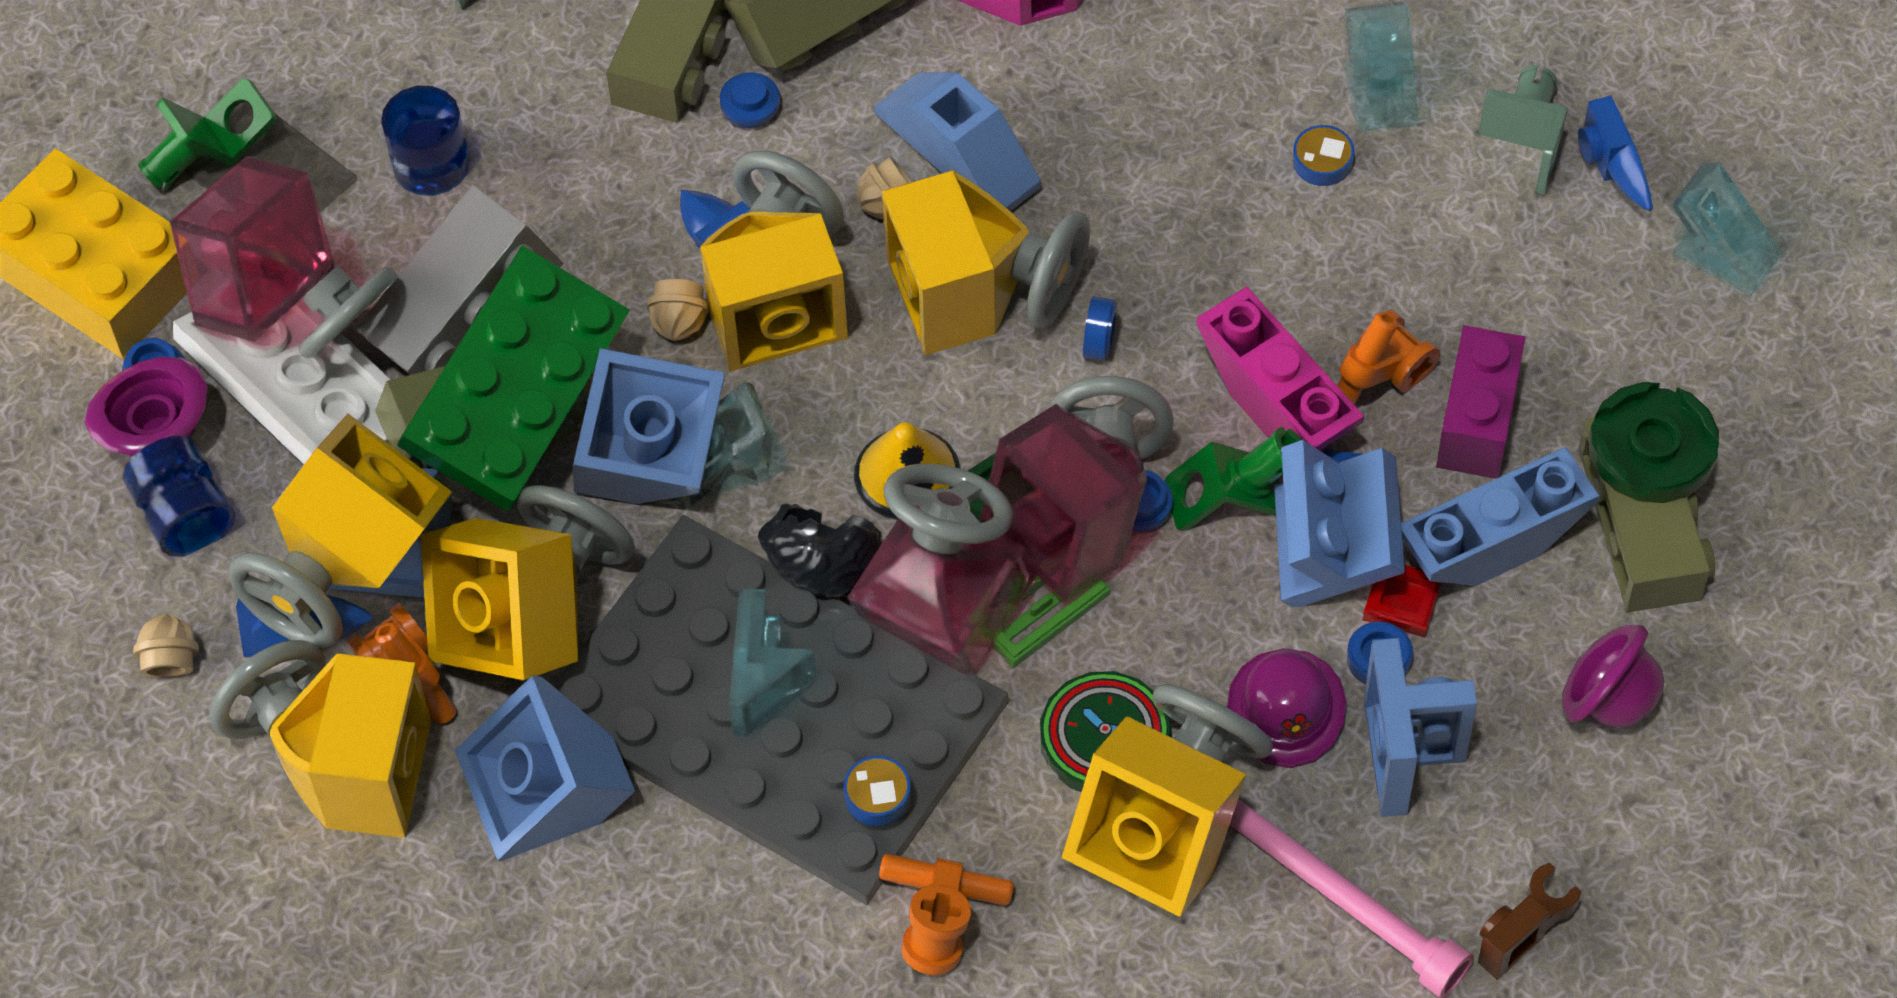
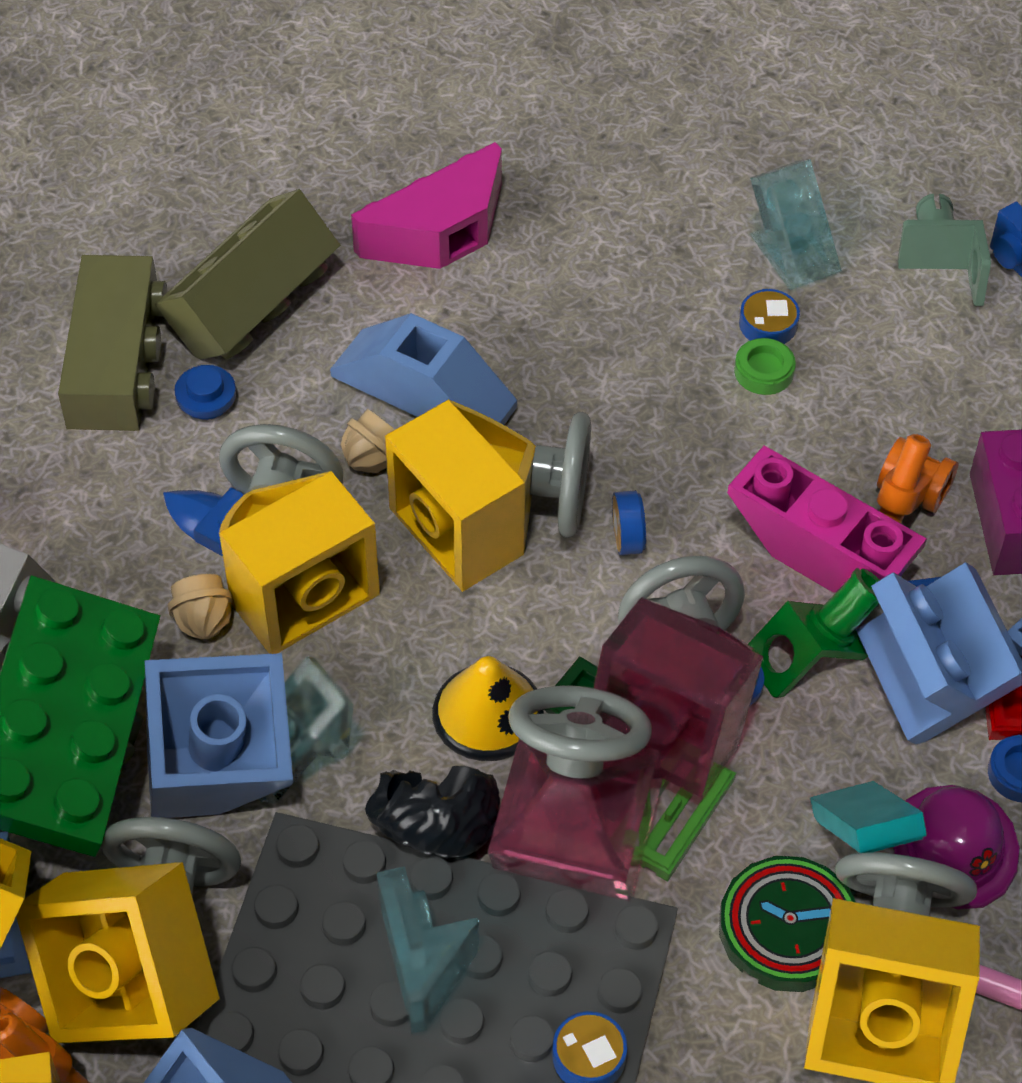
camera: 20 degrees left, 5 degrees down
(1204, 658) = (869, 817): none -> teal tile
(1298, 204) = (764, 366): none -> bright green tile

